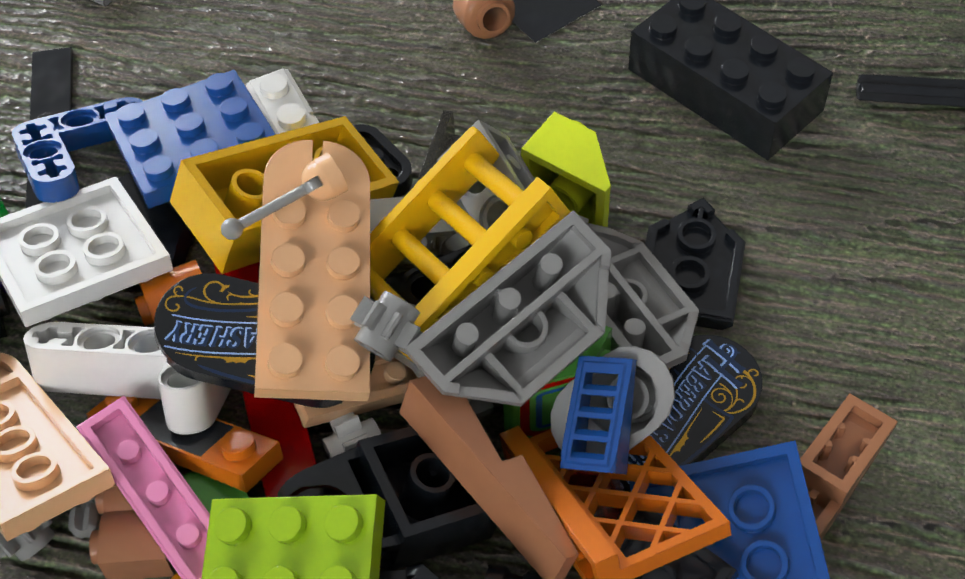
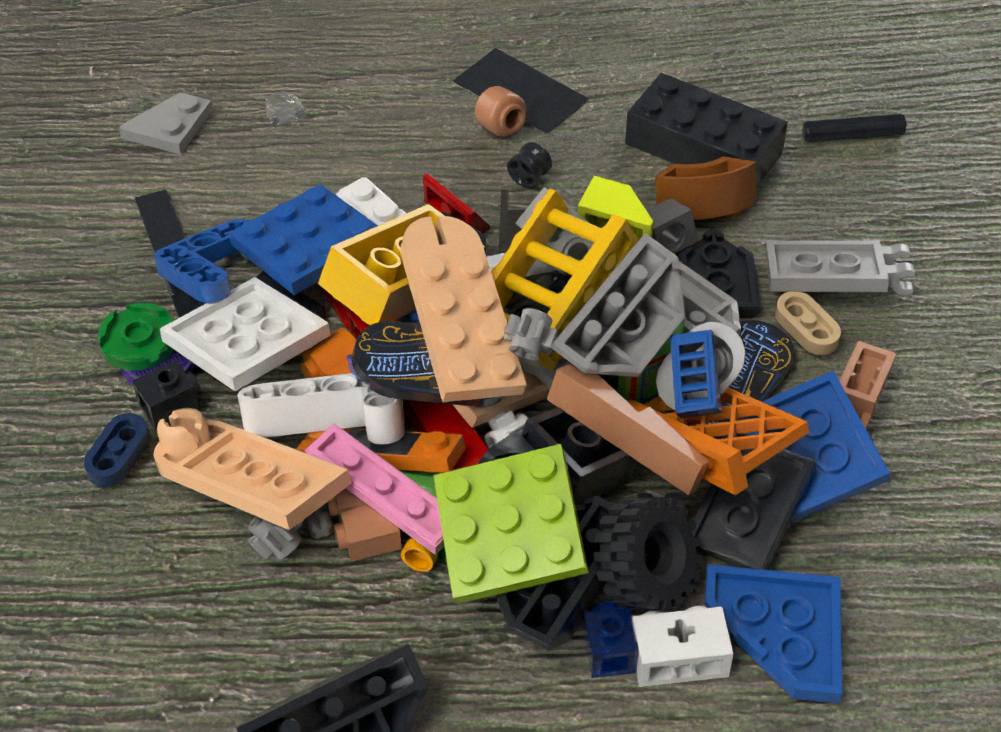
camera: 15 degrees left, 5 degrees down
(320, 180) = (452, 241): hinge -> none
(390, 119) = (445, 201): none -> red slope
(497, 80) = (529, 165): none -> black wheel
(654, 195) = (673, 225): none -> dark grey brick
(704, 147) = (710, 188): none -> dark orange brick
(793, 356) = (812, 324): none -> tan plate
(852, 281) = (837, 266): none -> light grey tile

